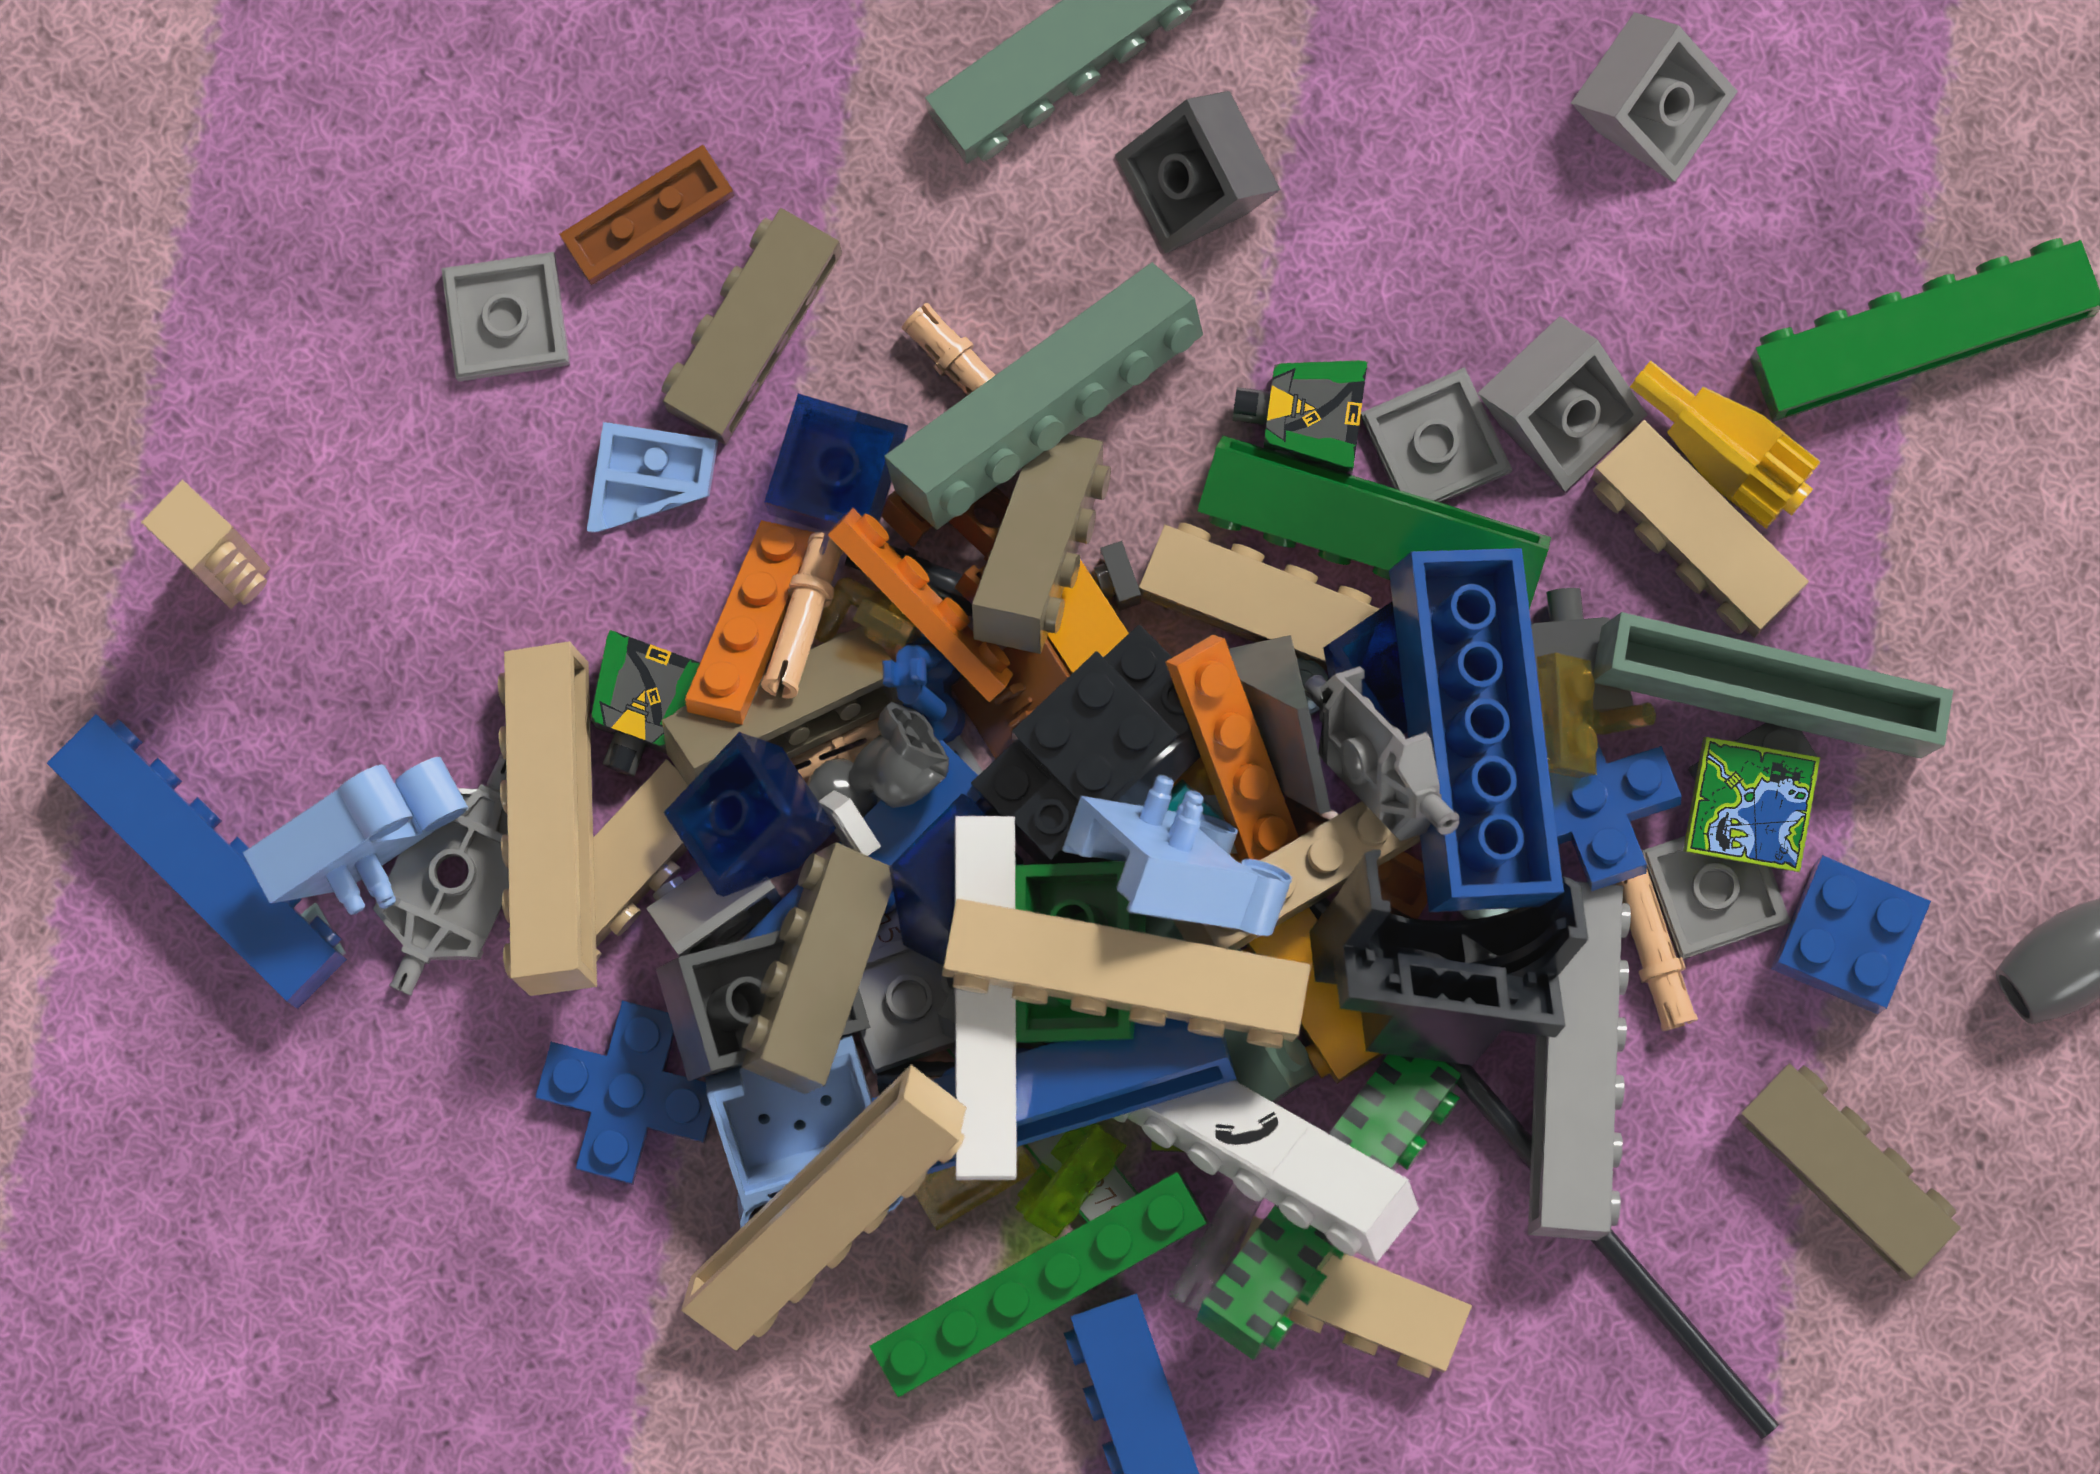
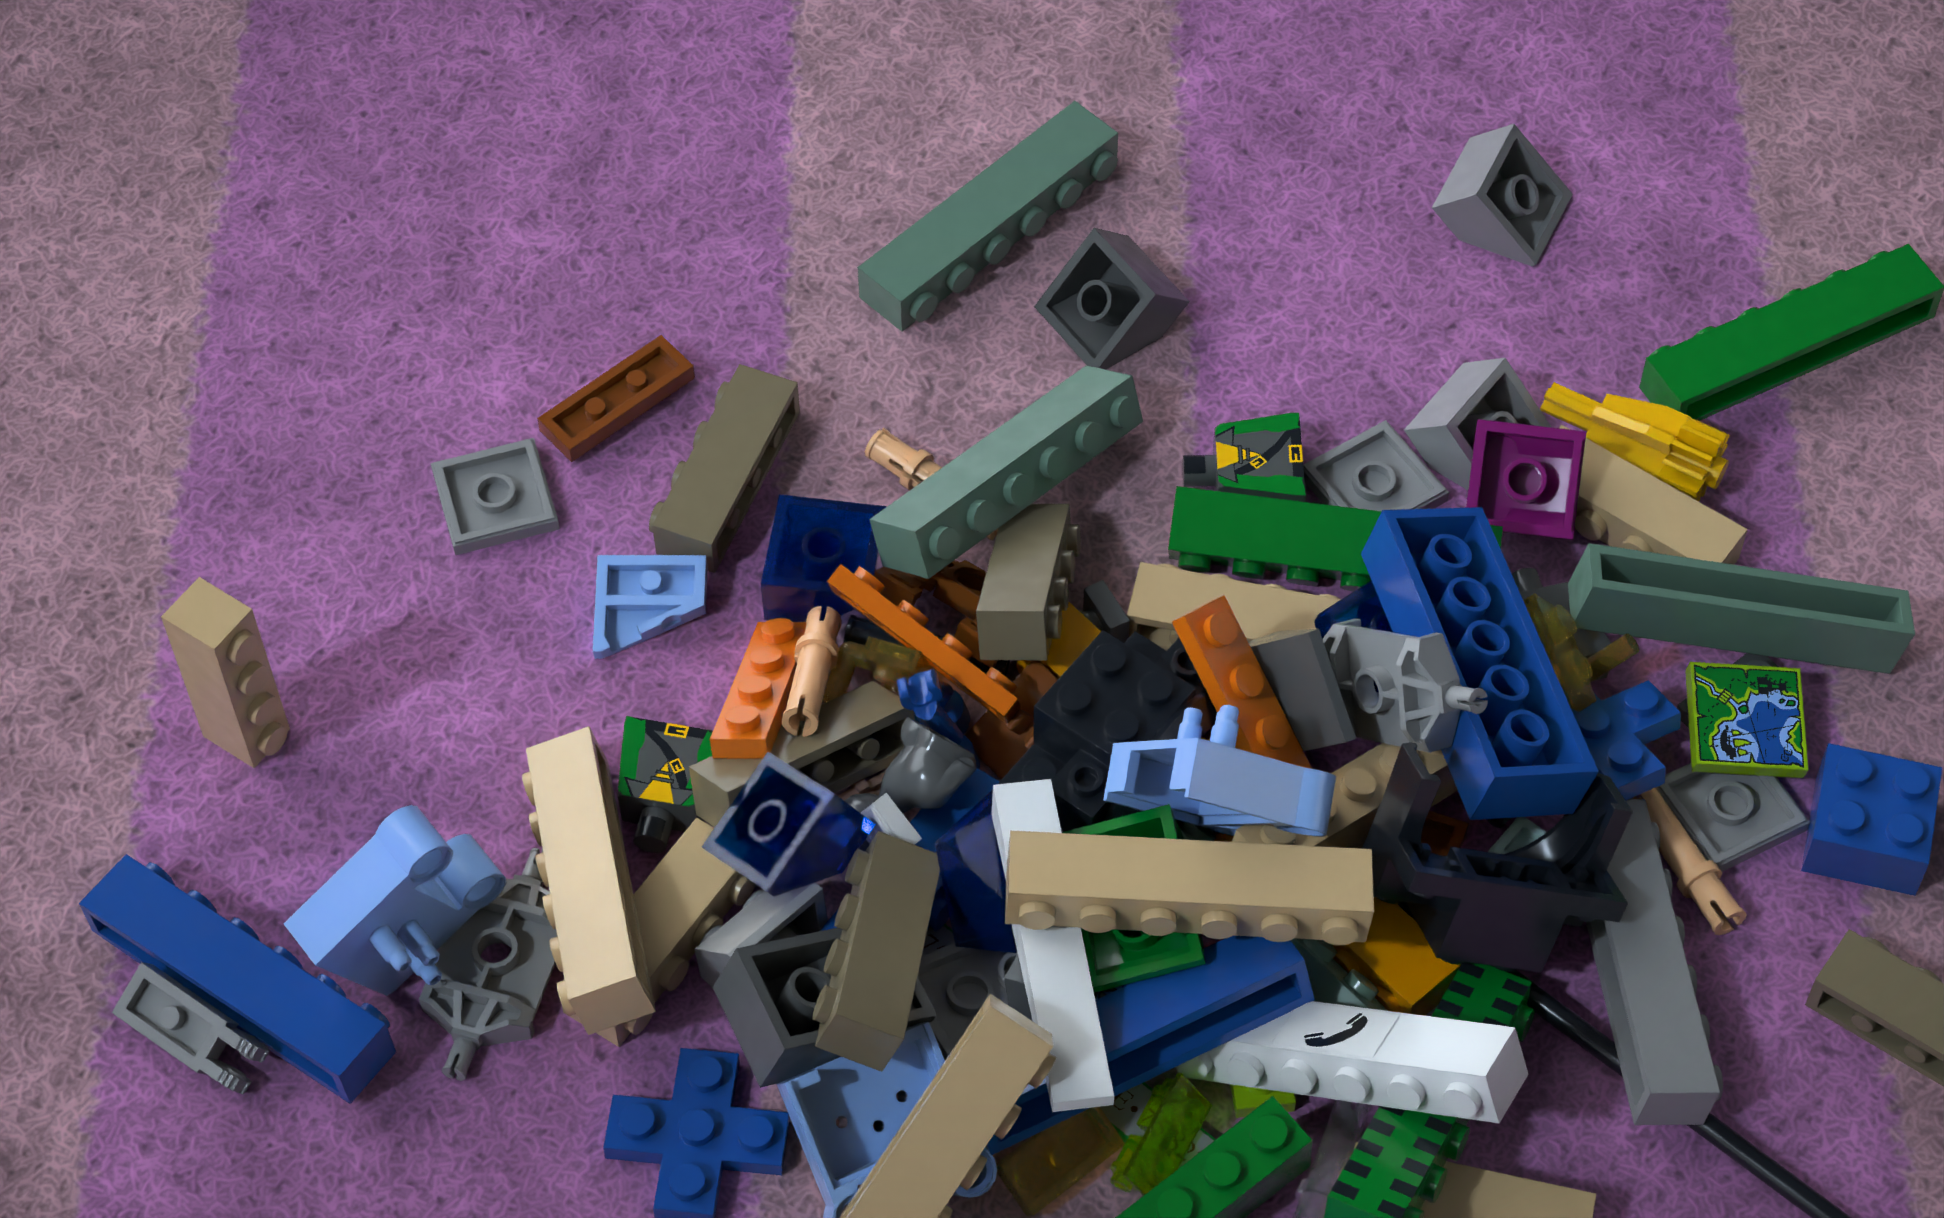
camera: 15 degrees left, 25 degrees down
(147, 906) = (186, 1026): none -> light grey hinge
(1584, 493) = (1527, 477): none -> magenta slope

